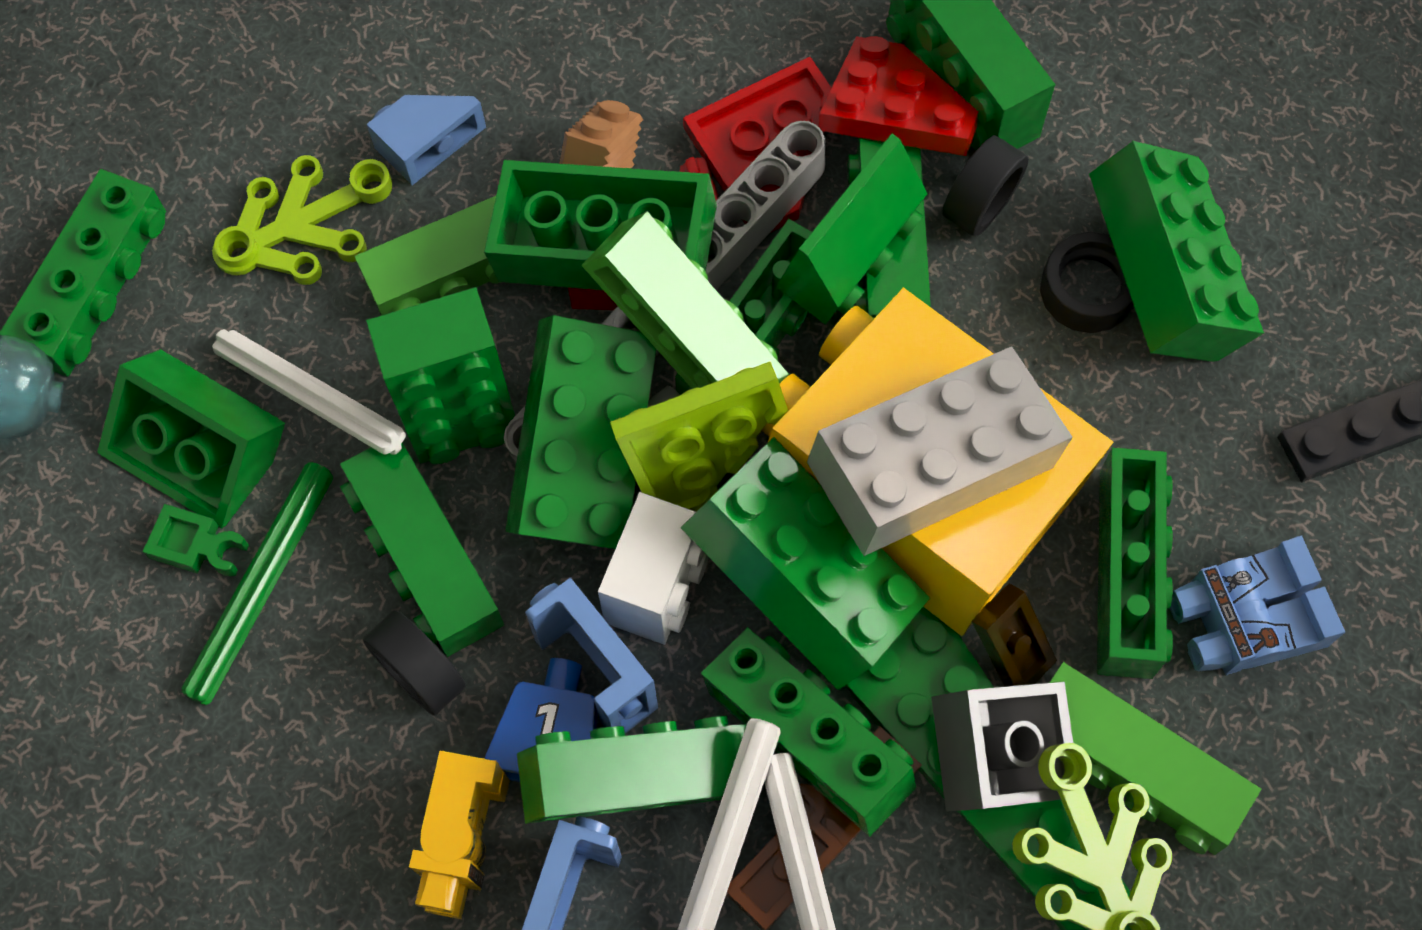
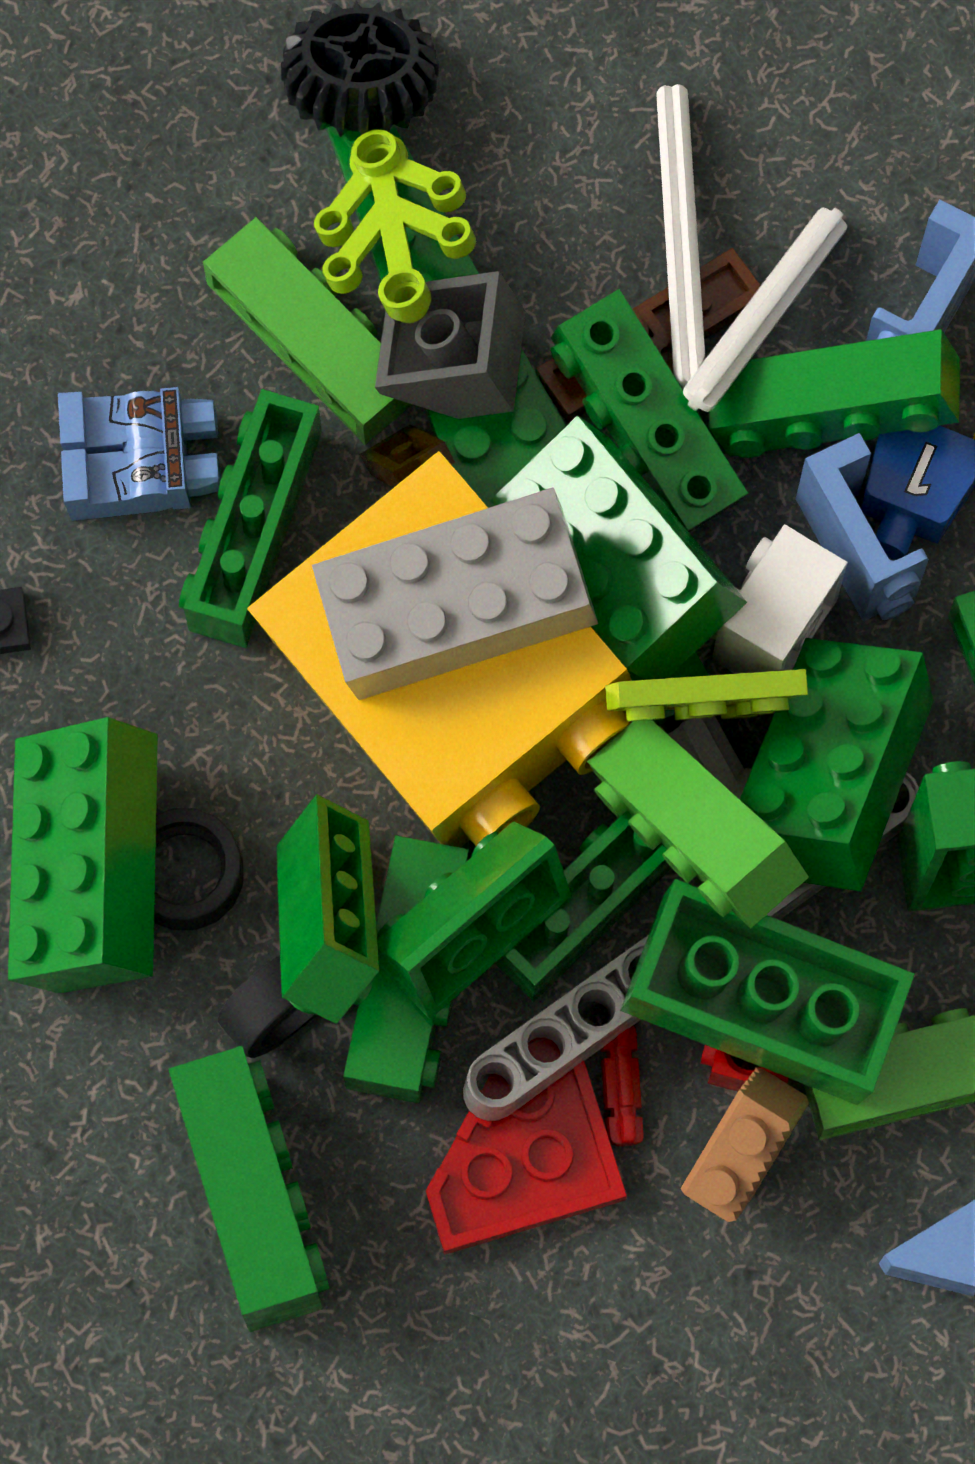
camera: 170 degrees left, 5 degrees up
(894, 92) = (356, 1142): red plate -> none
(970, 223) = (326, 911): none -> green brick

